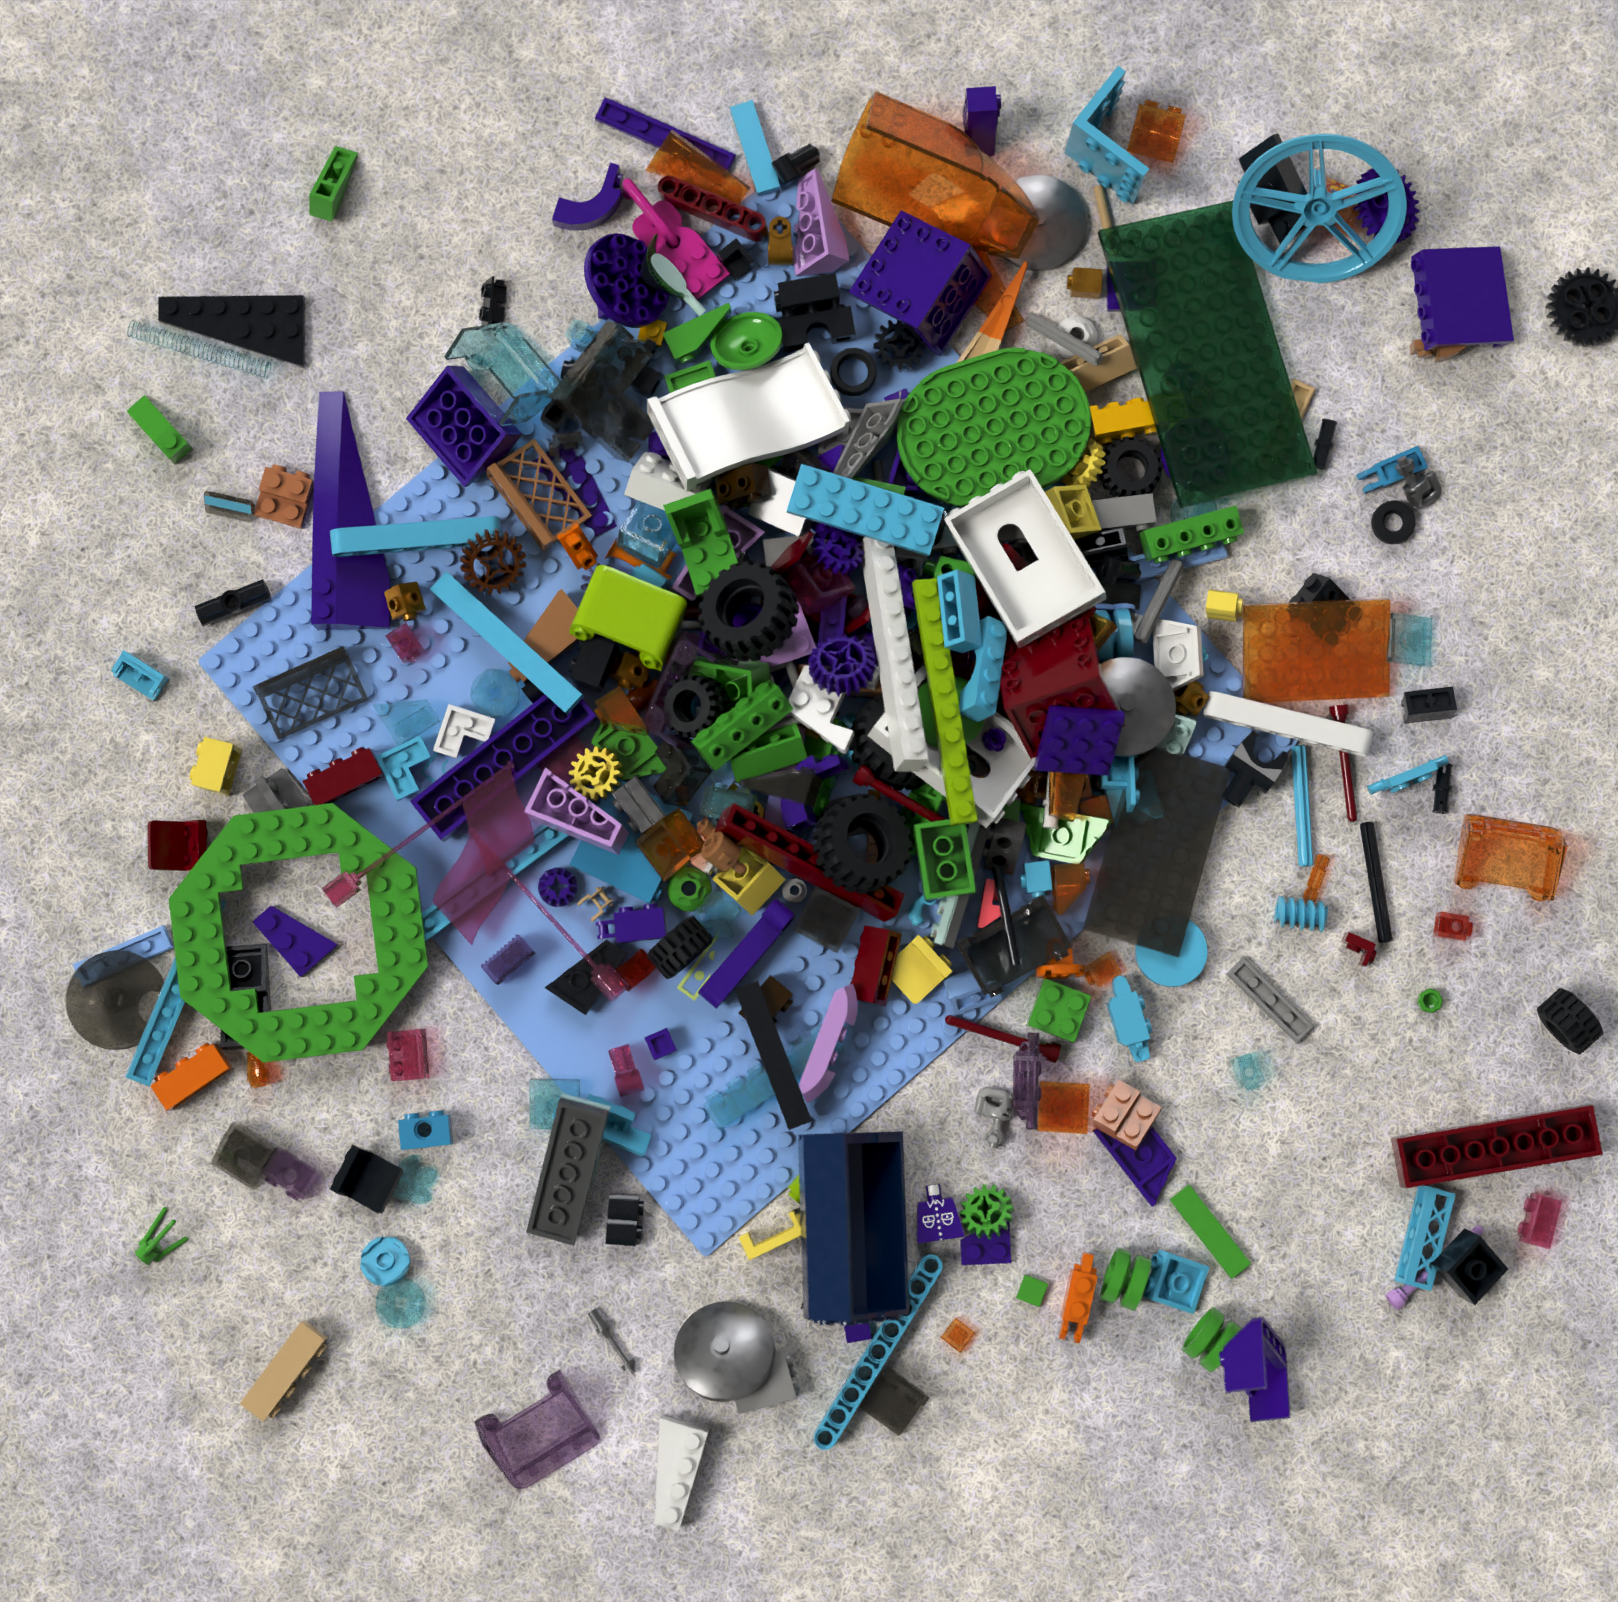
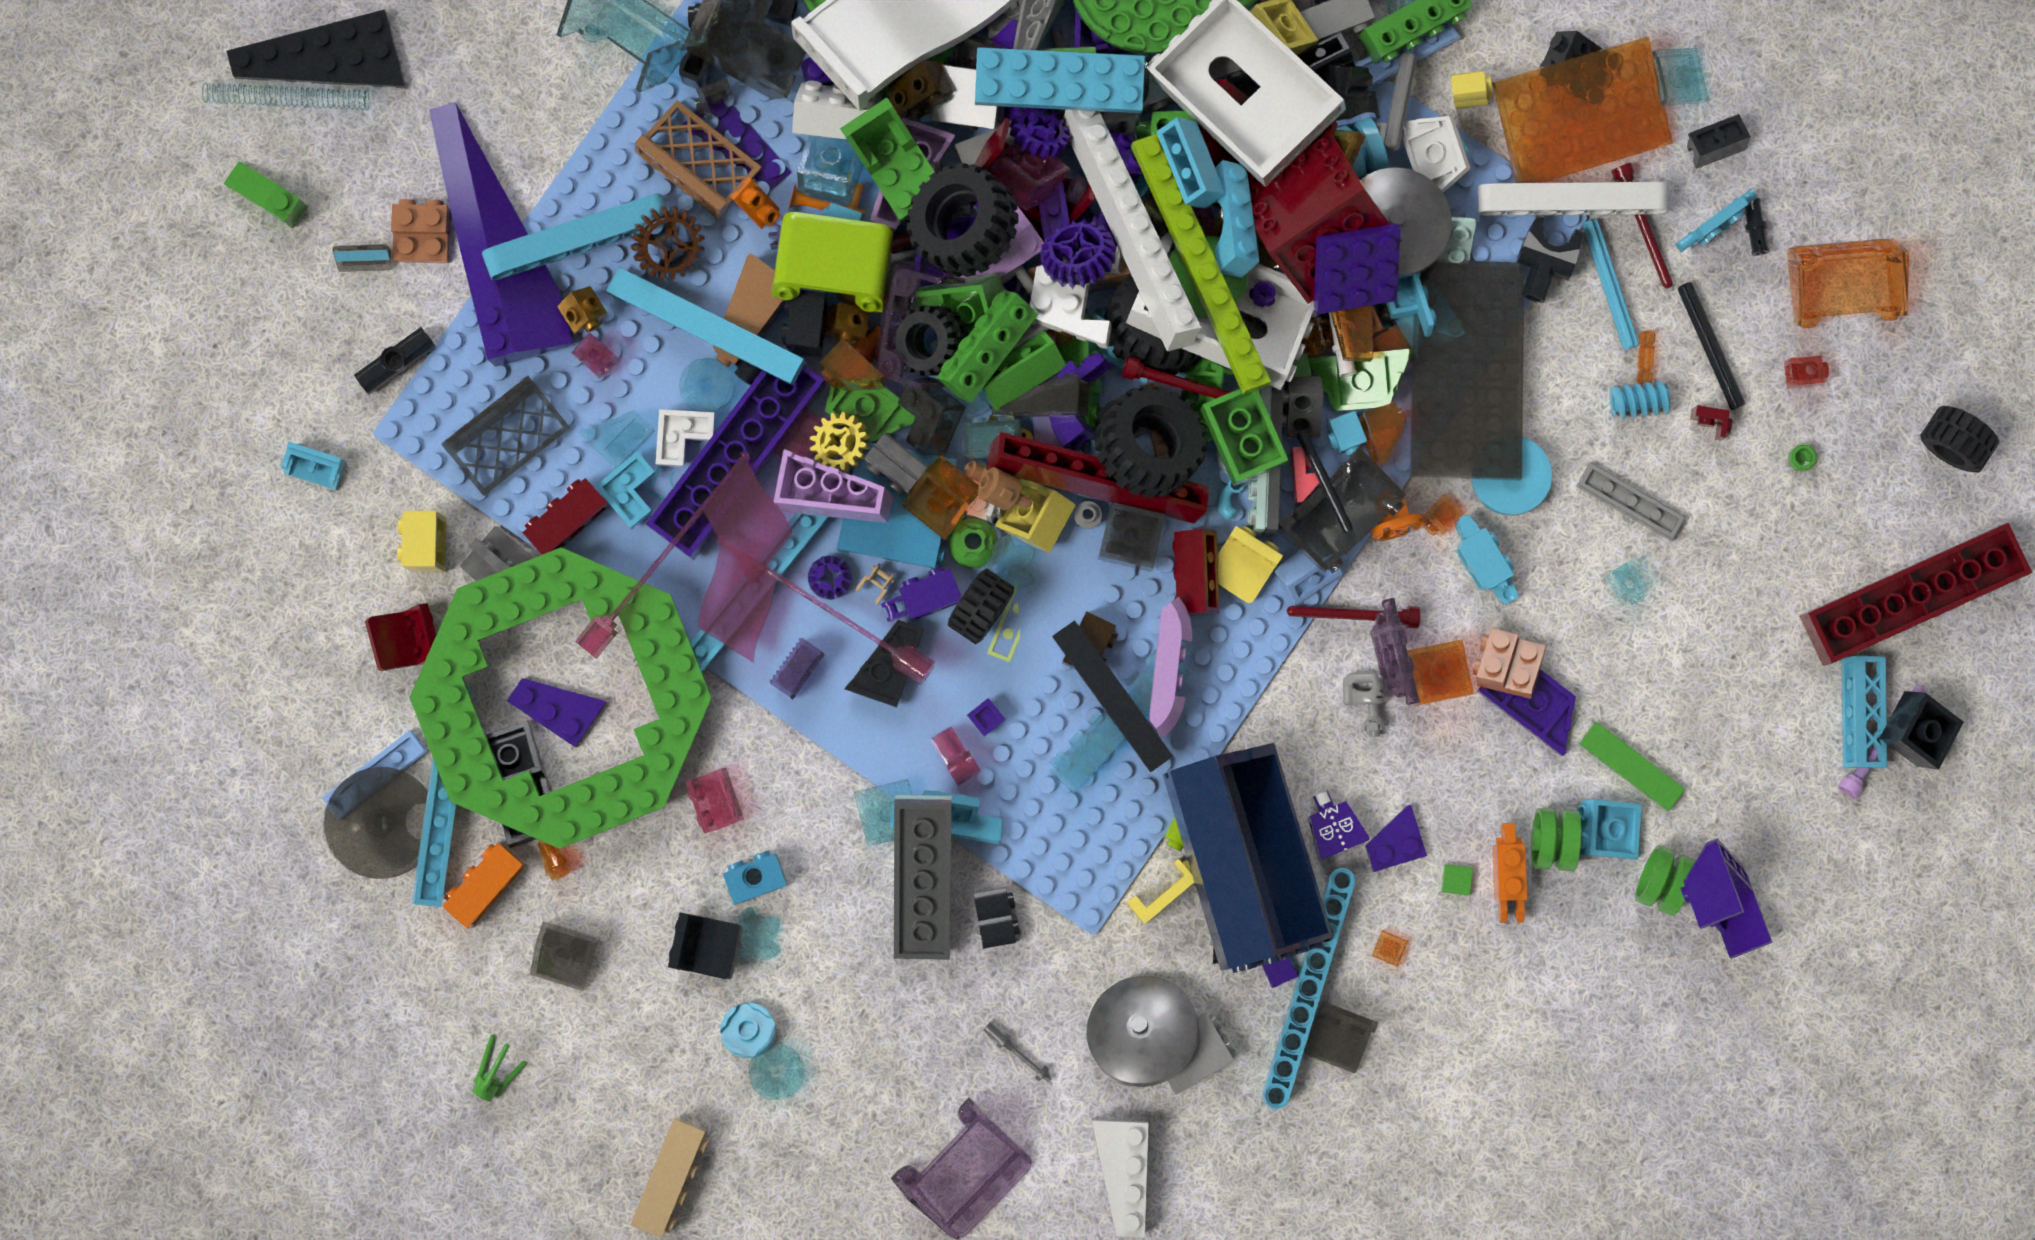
camera: 15 degrees left, 0 degrees up
(305, 1174) = (637, 962): clear purple brick -> none
(462, 424) = (595, 104): dark purple slope -> none
(636, 969) = (939, 642): clear red bracket -> none
(747, 953) = (1055, 593): dark purple beam -> none
(977, 1206) = (1399, 802): bright green gear -> none
(1058, 1010) = (1406, 570): bright green brick -> none
(1190, 698) = (1462, 198): pearl gold brick -> none
(1539, 1220) = (1982, 662): clear pink bracket -> none

